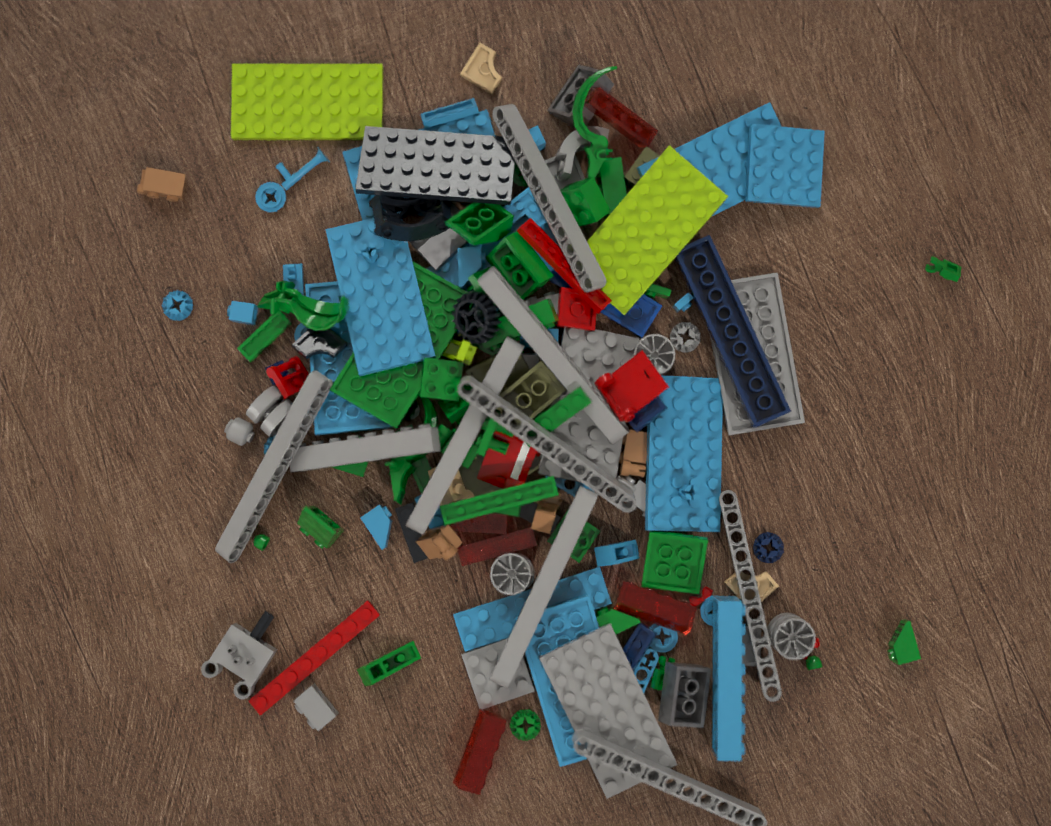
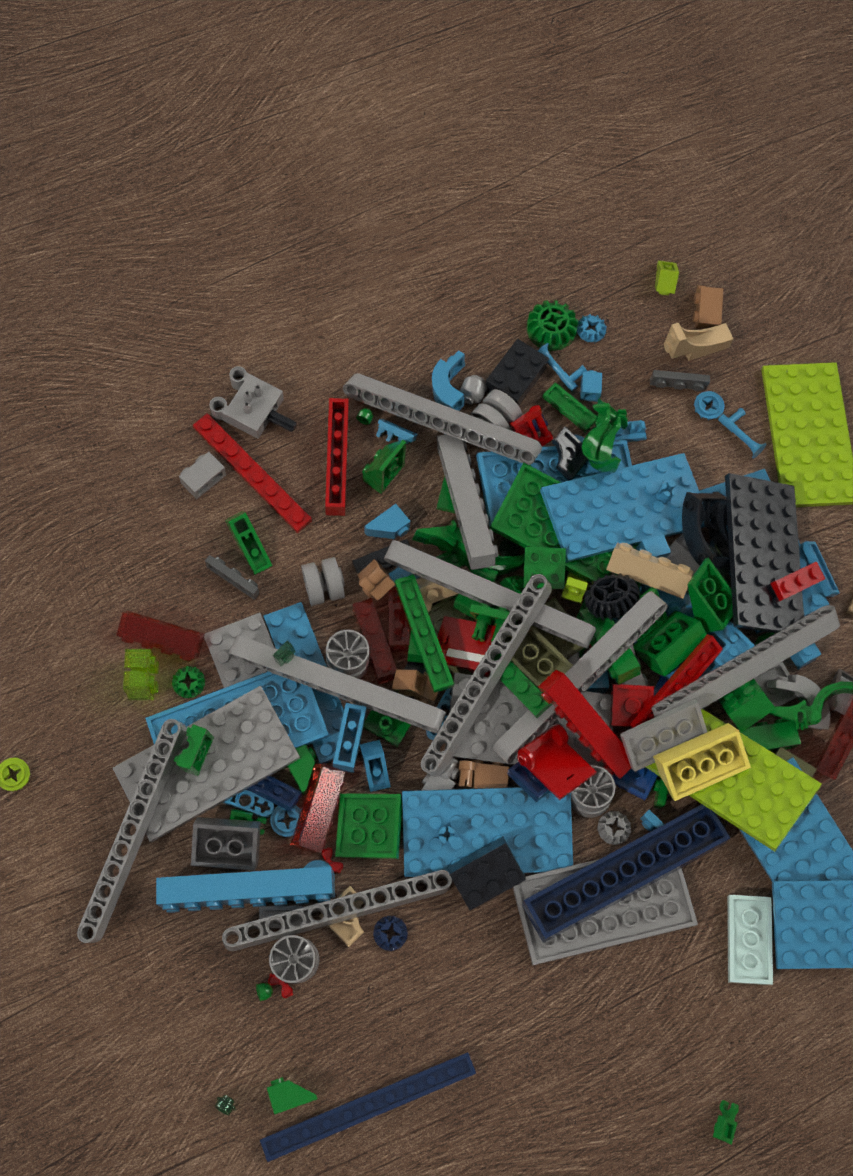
camera: 75 degrees right, 15 degrees down
(125, 222) = (666, 277): none -> lime slope
(182, 352) = (548, 329): none -> green gear
(203, 200) = (697, 342): none -> tan arch
(221, 461) = (442, 374): none -> dark azure arch
(225, 386) = (517, 371): none -> black brick
(234, 335) = (568, 380): none -> dark azure piece
(243, 223) = (679, 380): none -> dark grey plate
(277, 515) = (393, 429): none -> dark azure plate
(305, 572) = (337, 457): none -> red brick
(423, 679) = (232, 576): none -> dark grey plate
(427, 272) = (656, 546): none -> dark azure brick
(437, 597) = (328, 580): none -> light grey wheel
(451, 278) = (650, 570): none -> tan brick
(466, 137) = (798, 581): none -> red plate
(516, 635) = (284, 653): none -> clear green plate
(519, 769) = (140, 680): none -> clear neon green piece
(594, 576) = (349, 737): none -> dark azure brick
(599, 355) = (586, 723): none -> red brick
(599, 720) = (193, 757): none -> green brick
(614, 283) = (662, 734): none -> light grey plate
(640, 251) = (702, 761): none -> light yellow slope
(725, 458) = (486, 873): none -> black brick
(792, 227) = (750, 940): none -> light aqua plate
(907, 700) = (225, 1105): none -> clear green plate
(915, 576) = (367, 1107): none -> dark blue plate

